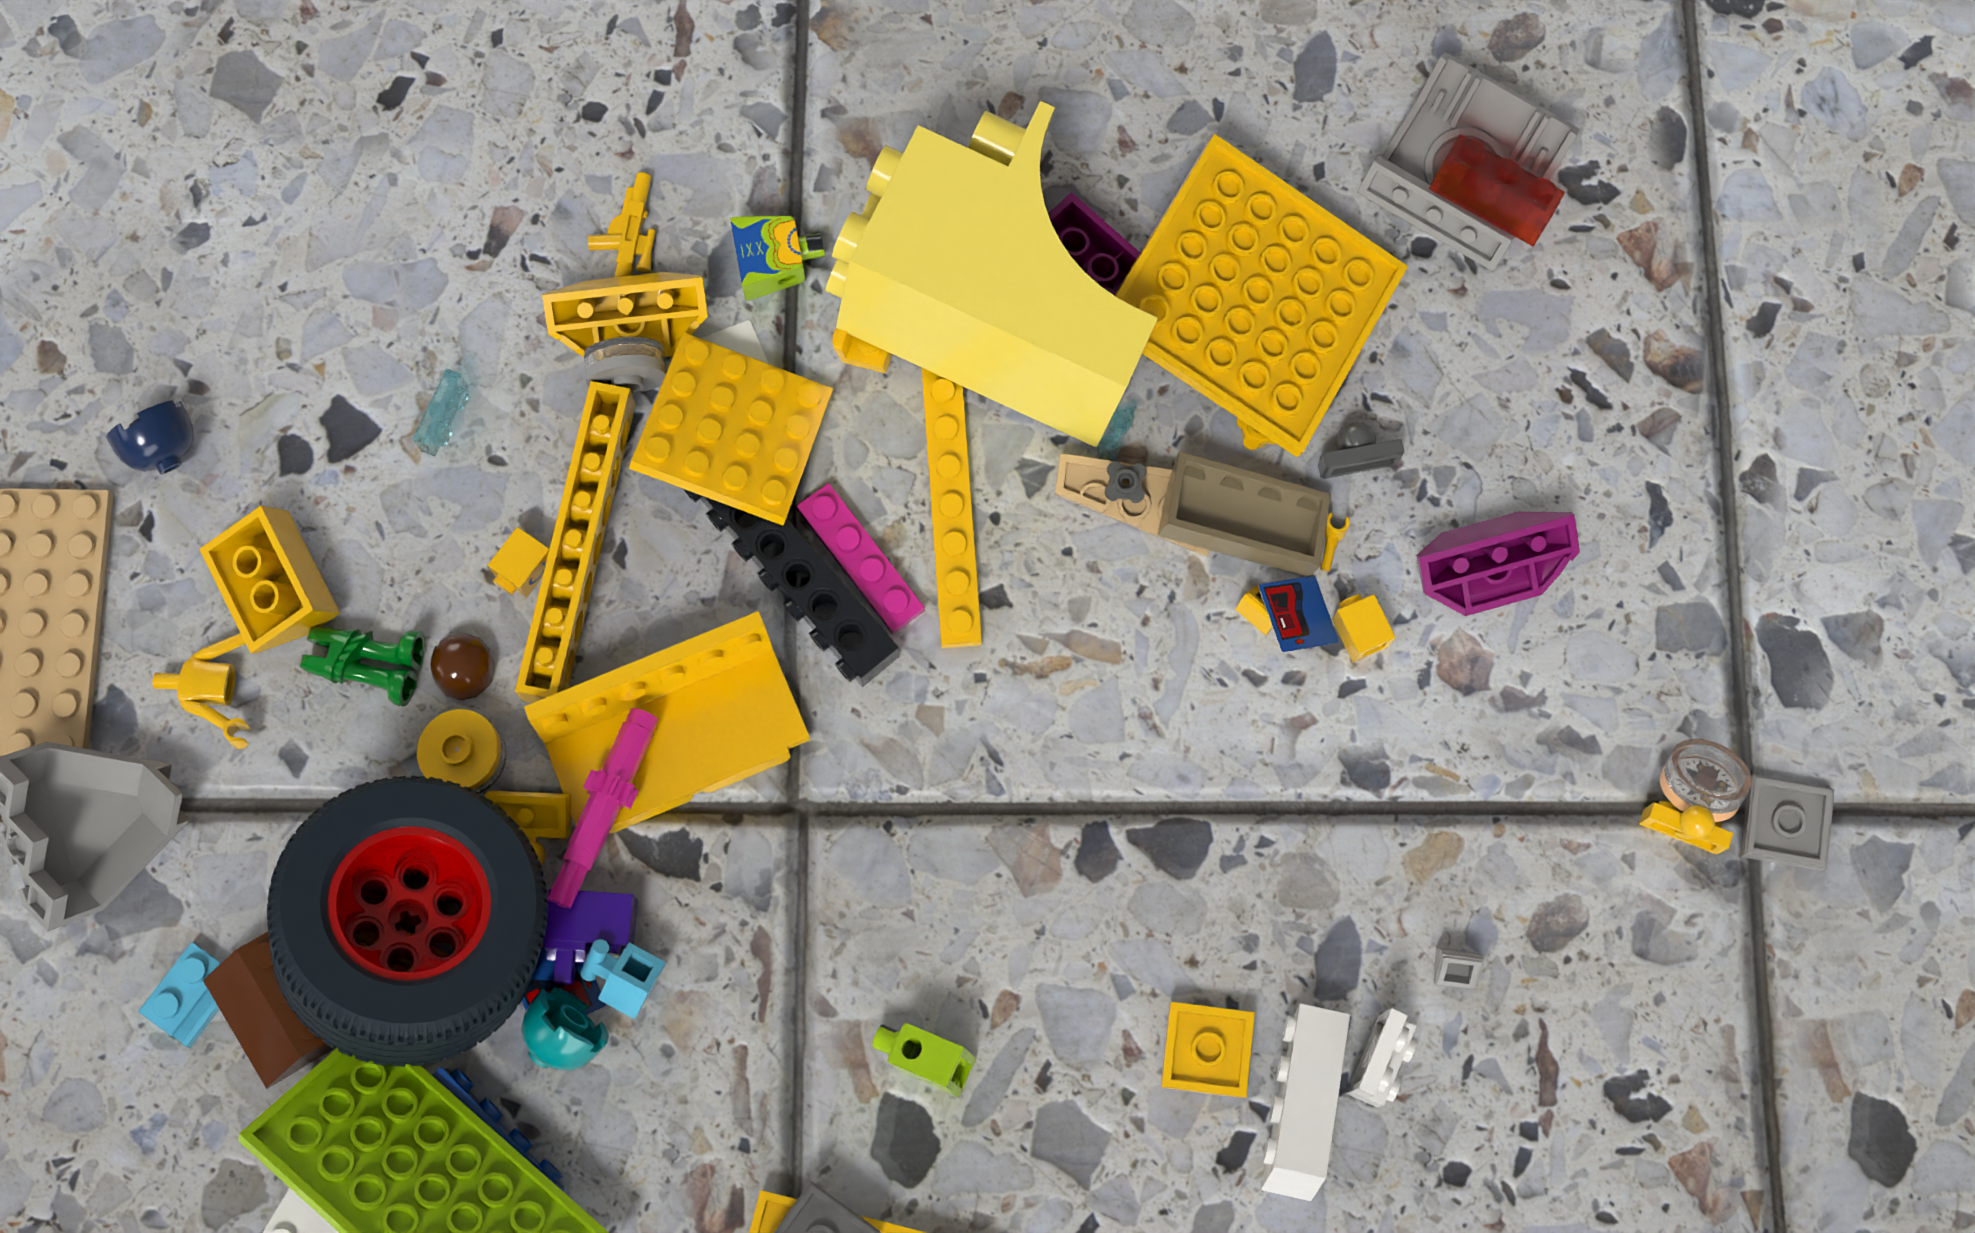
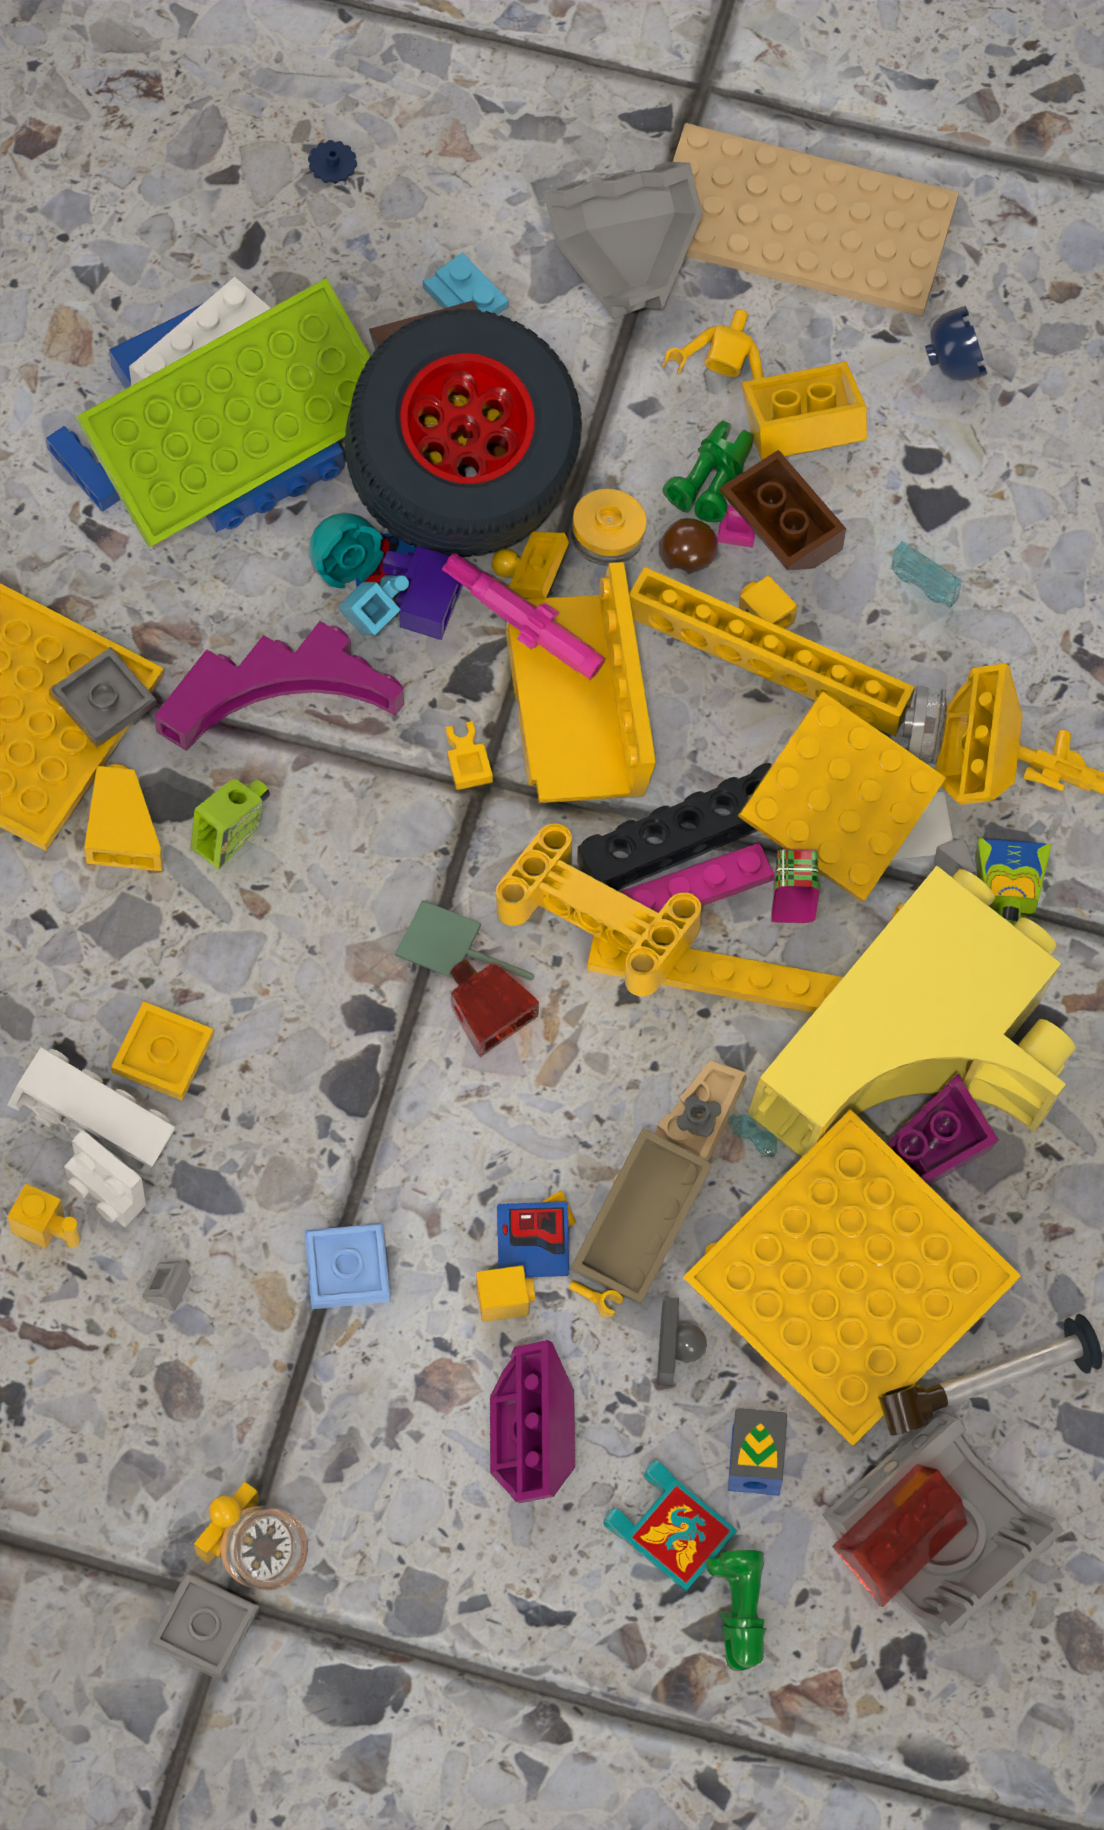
camera: 105 degrees right, 10 degrees down
(39, 1202) = (332, 161): none -> dark blue piece
(406, 566) = (786, 513): none -> reddish brown slope
(426, 617) = (735, 530): none -> dark pink tile
(710, 1017) = (271, 670): none -> magenta arch
(771, 309) = (954, 856): none -> light grey slope
(783, 824) = (467, 761): none -> yellow plate
(845, 451) = (795, 886): none -> piece
(925, 639) = (598, 909): none -> yellow beam
(957, 1179) = (120, 823): none -> yellow slope
(992, 799) = (443, 939): none -> sand green piece
(1058, 726) = (490, 1005): none -> clear red torso
(1365, 213) = (913, 1406): none -> piece
(1377, 792) = (347, 1266): none -> light blue tile
(1434, 1119) = (40, 1216): none -> yellow brick
(1447, 347) = (757, 1451): none -> piece
(1541, 407) = (676, 1531): none -> flag
(1607, 325) = (741, 1626): none -> green piece

